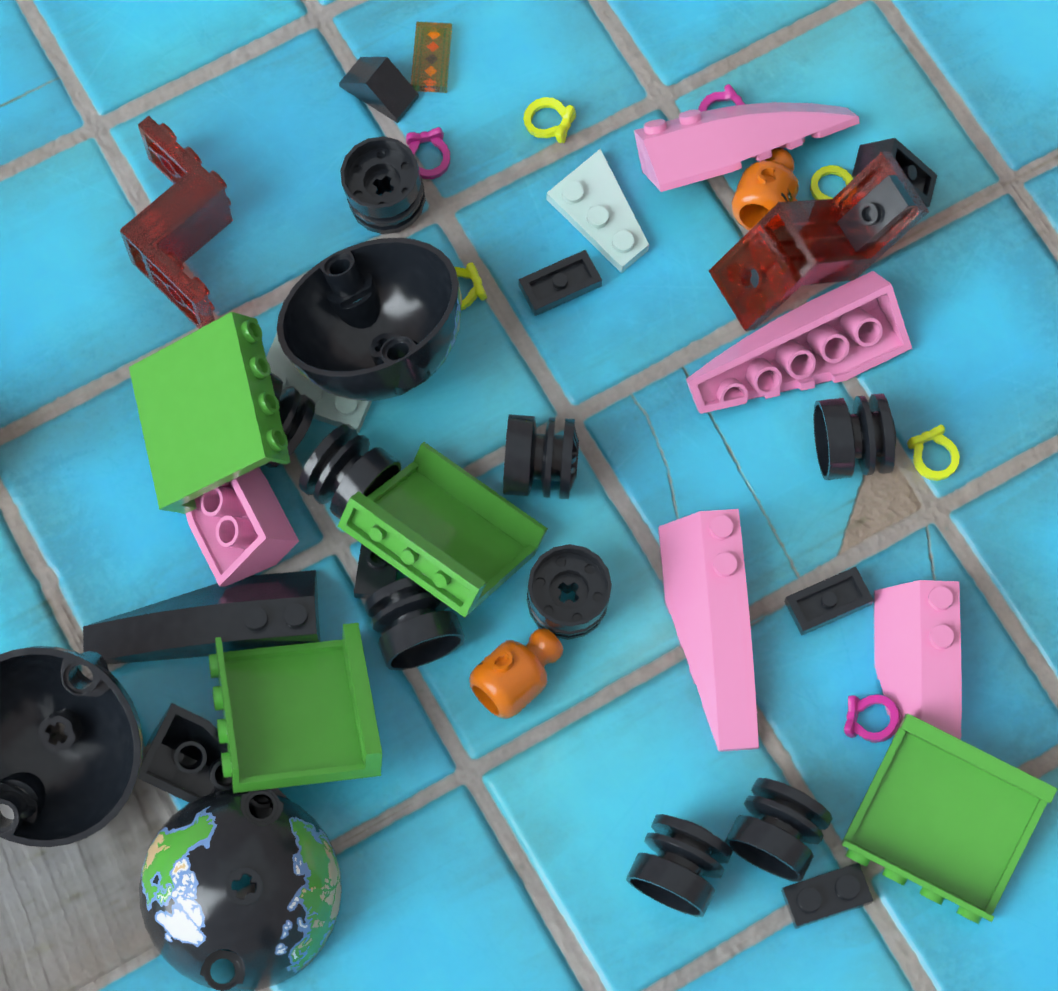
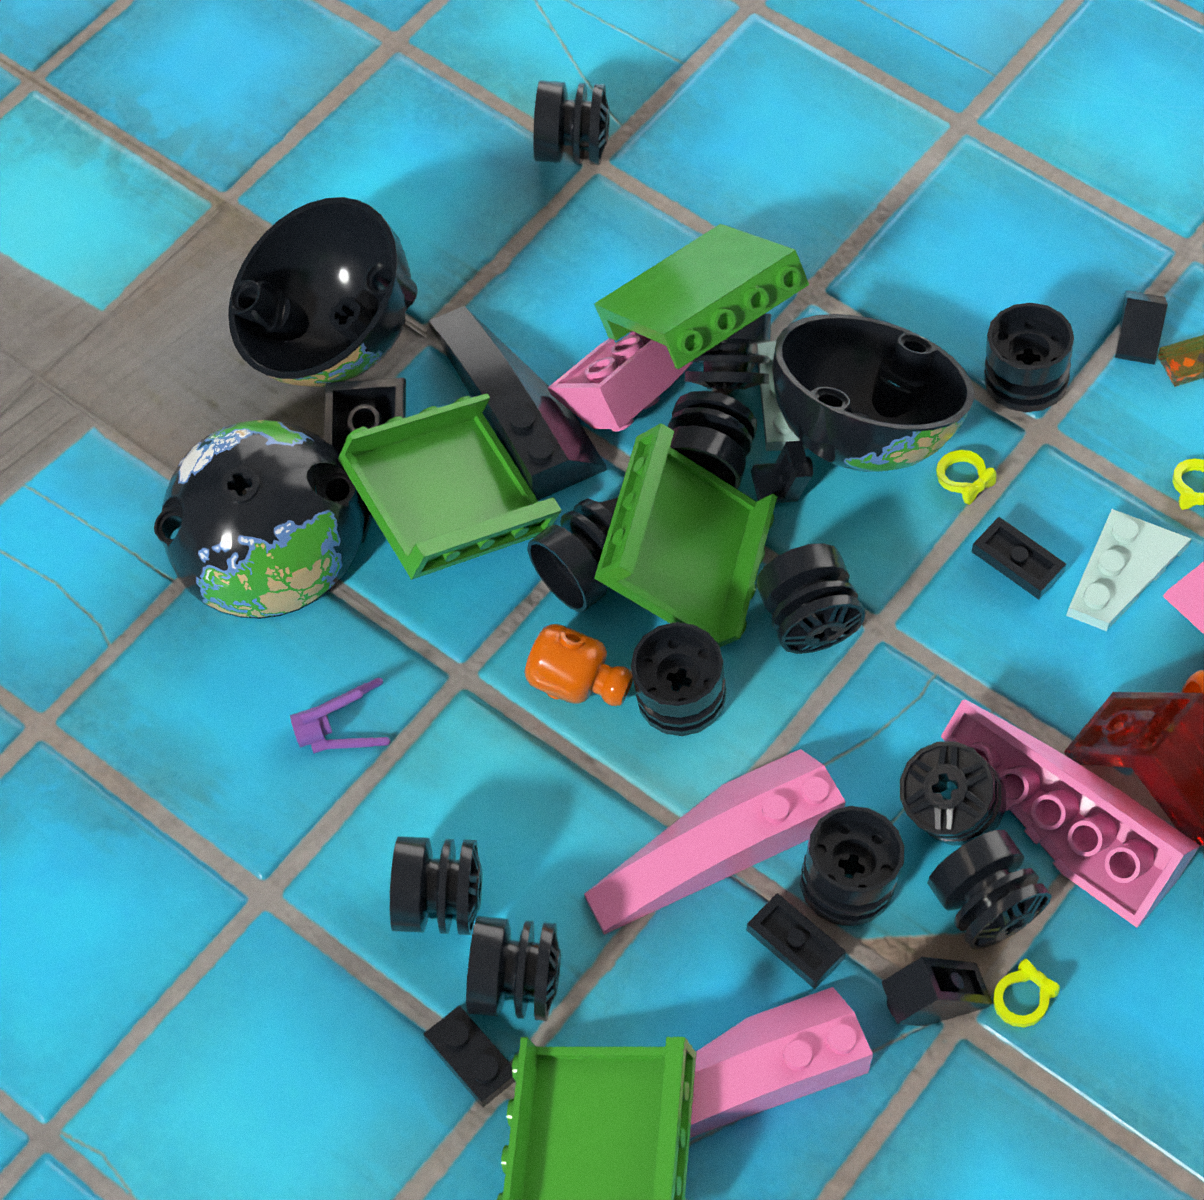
camera: 70 degrees right, 10 degrees down
(177, 222) = (889, 209): clear red bracket -> none
(402, 427) = (786, 476): none -> black bracket
(434, 136) = (1101, 376): dark pink piece -> none
(471, 918) = (313, 724): none -> medium lavender plant
(743, 430) = (974, 806): none -> black wheel
(789, 510) = (855, 844): none -> black wheel
(856, 705) = (691, 1010): dark pink piece -> none
(914, 516) = (935, 991): none -> black slope

